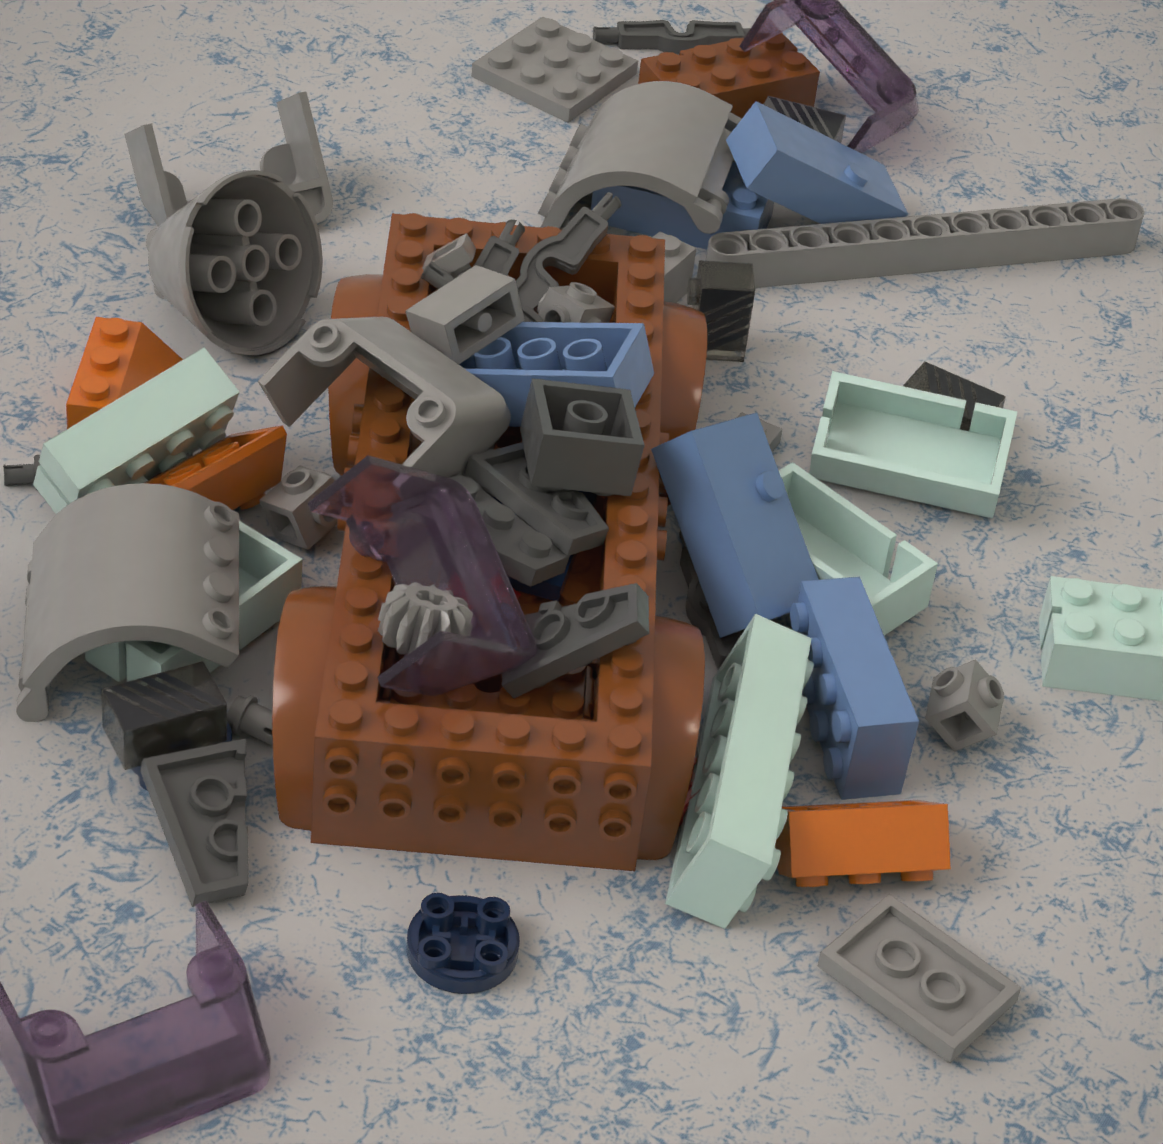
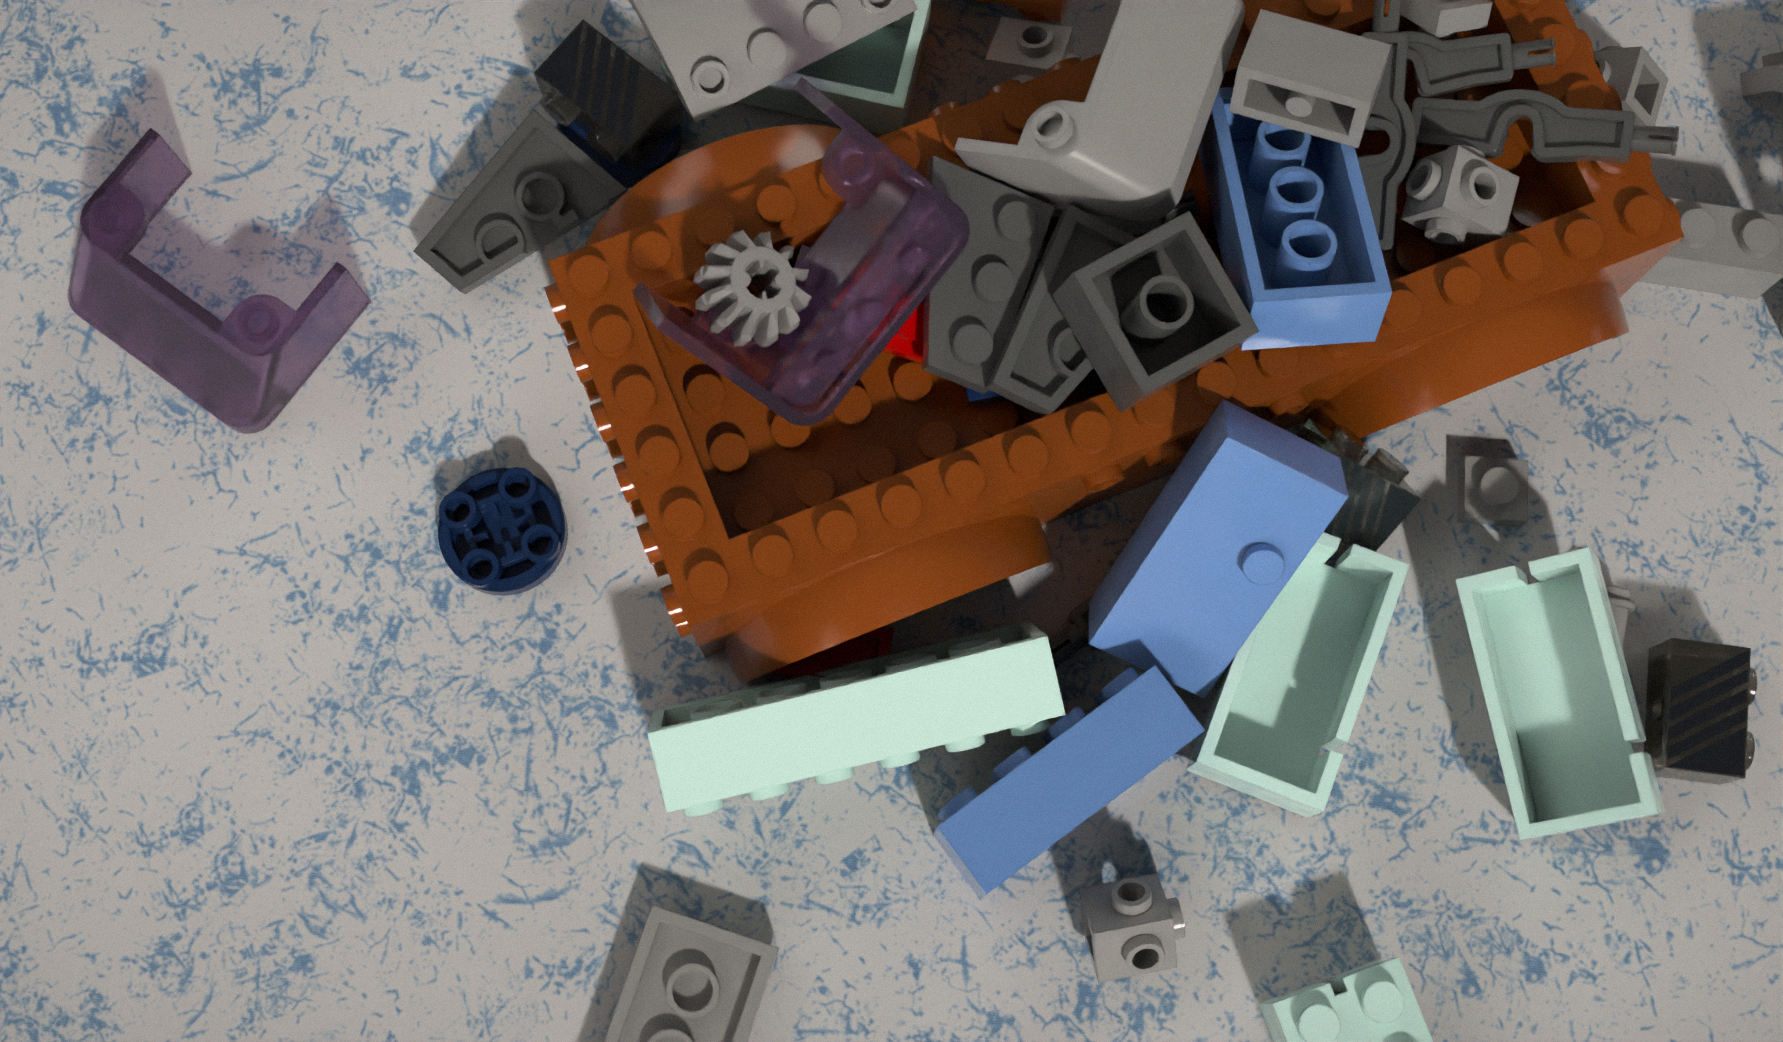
camera: 70 degrees right, 35 degrees up
(579, 634) = (859, 452): dark grey wing -> none
(726, 298) = (1683, 354): clear smoke brick -> none
(864, 841) = (854, 879): orange slope -> none

